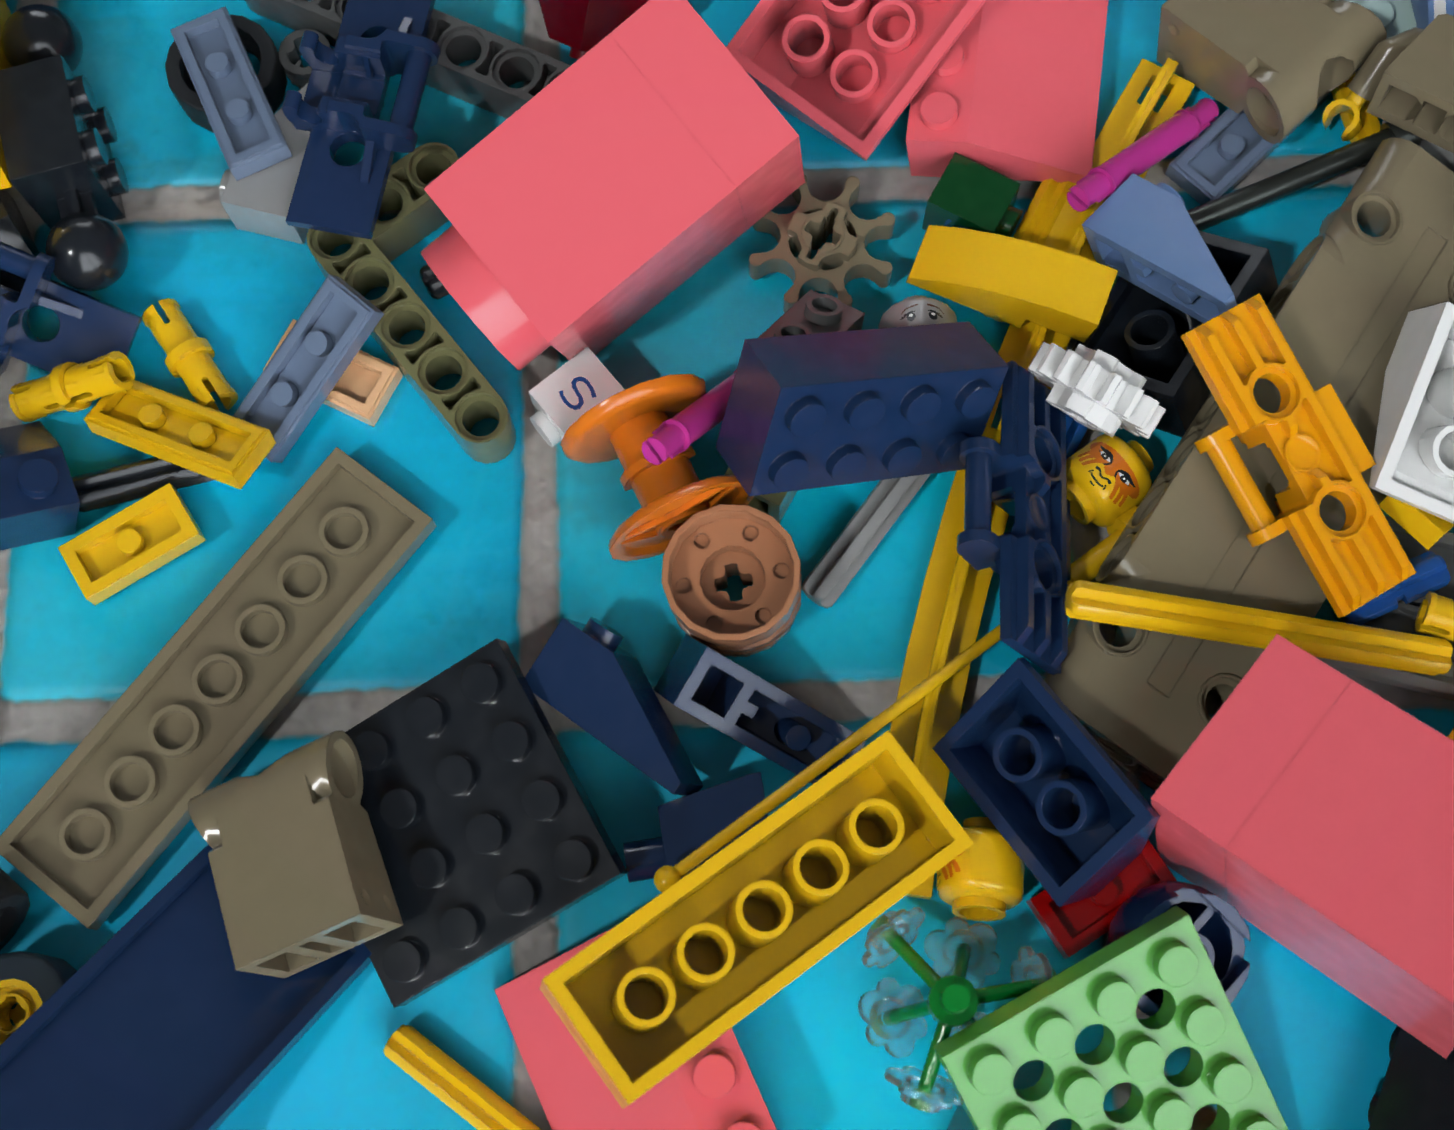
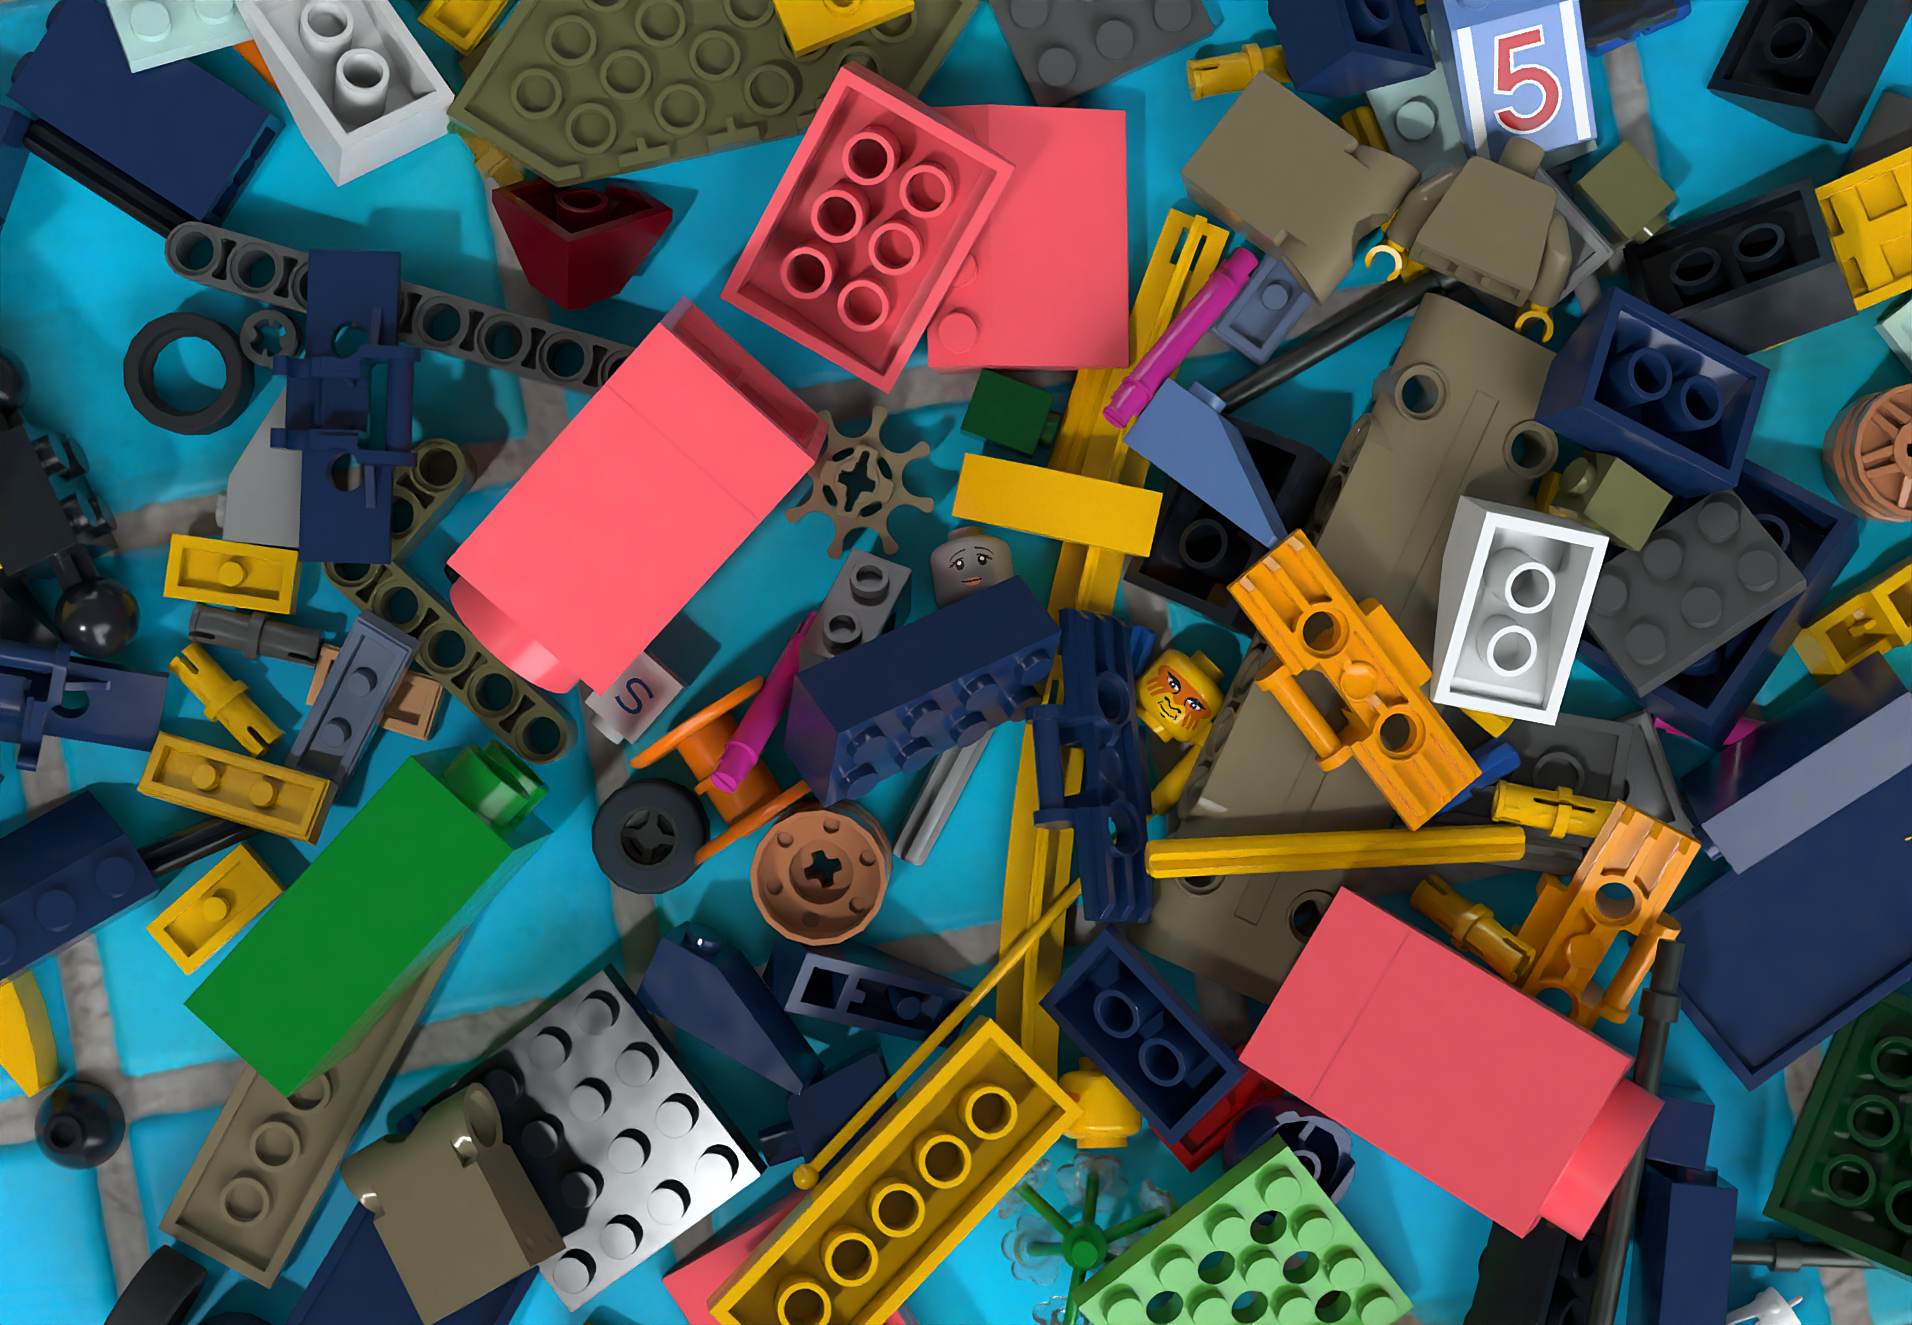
camera: 10 degrees left, 15 degrees up
(72, 386) = (117, 760): yellow pin -> none
(224, 246) = (233, 574): none -> yellow plate
(230, 301) = (256, 635): none -> dark grey pin
(231, 93) = (205, 416): sand blue tile -> none
(280, 513) = (374, 911): none -> green brick
(566, 512) = (632, 844): none -> black wheel
(1096, 390) = (1153, 630): white gear -> none

